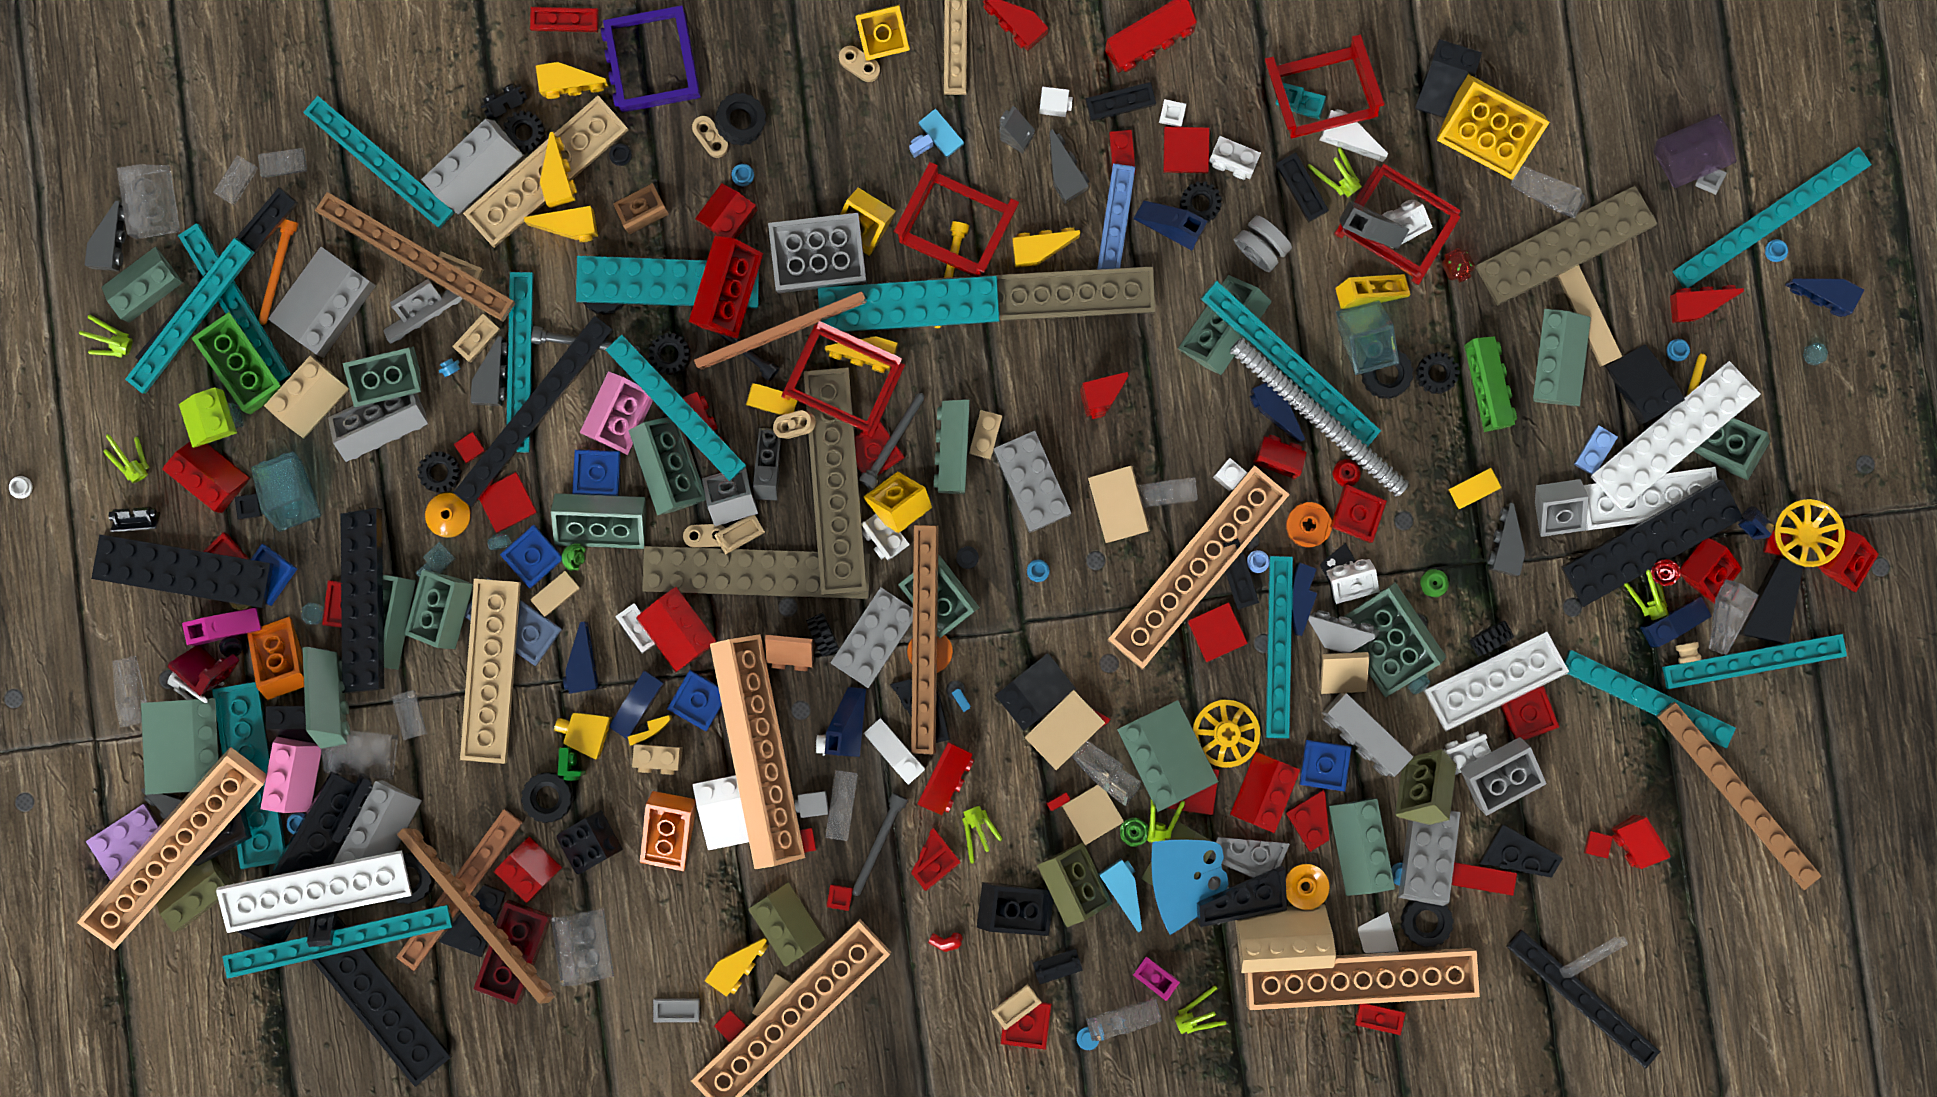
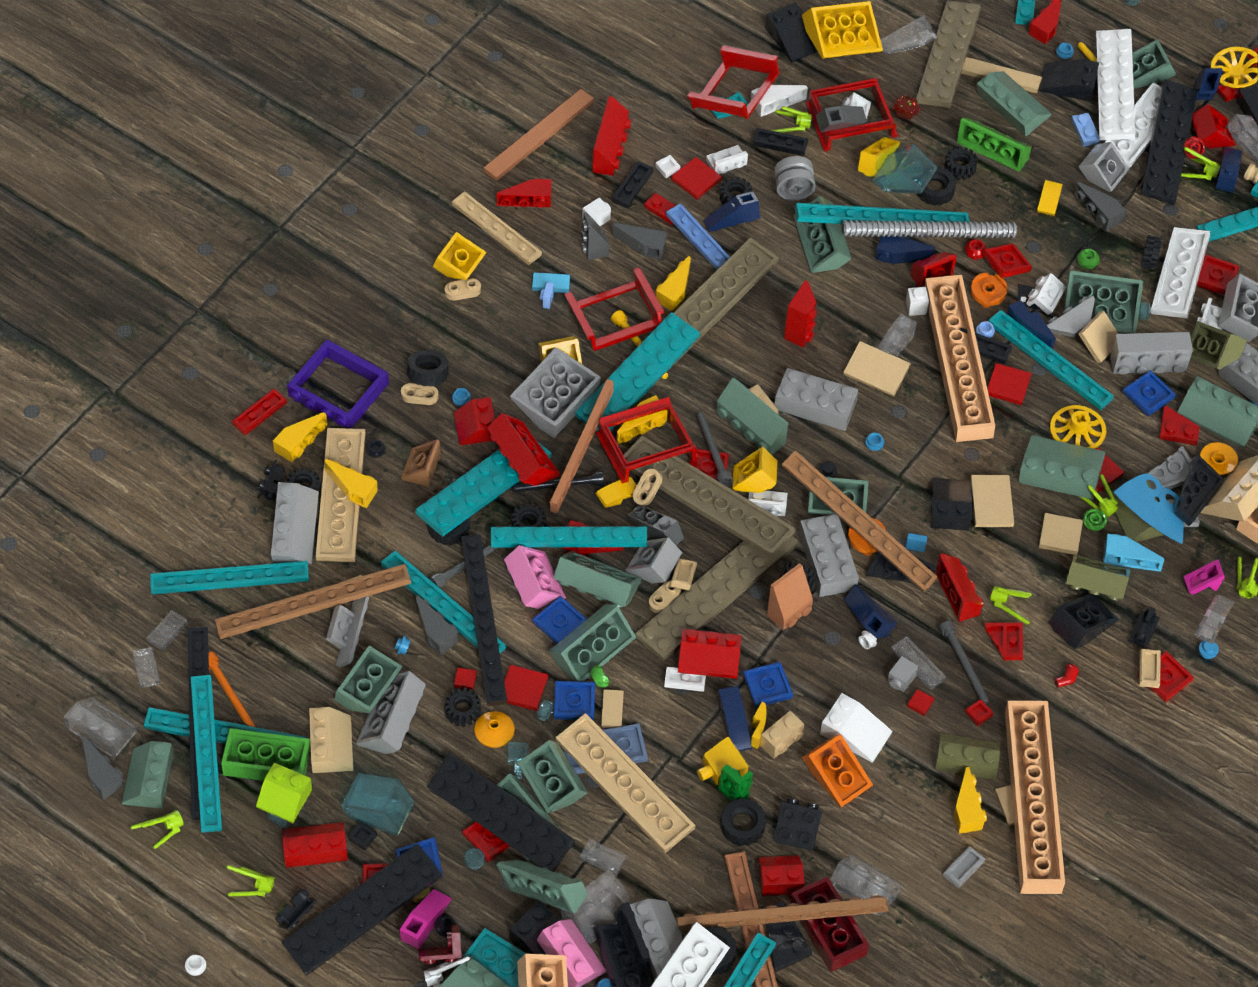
camera: 50 degrees left, 30 degrees down
(276, 658) = (483, 903): orange slope -> none
(321, 302) = (278, 681): light grey slope -> none
(476, 338) = (400, 615): tan plate -> none
(571, 223) = (387, 507): yellow slope -> none
(581, 667) = (677, 730): dark blue slope -> none
(730, 1025) = (1005, 843): red tile -> none
(757, 751) = (837, 670): light nougat brick -> none
(894, 751) = (915, 603): white slope -> none
(1058, 801) = (1034, 542): red tile -> none
(1107, 772) = (1043, 502): clear slope -> none
(1264, 792) = (1137, 433): red slope -> none

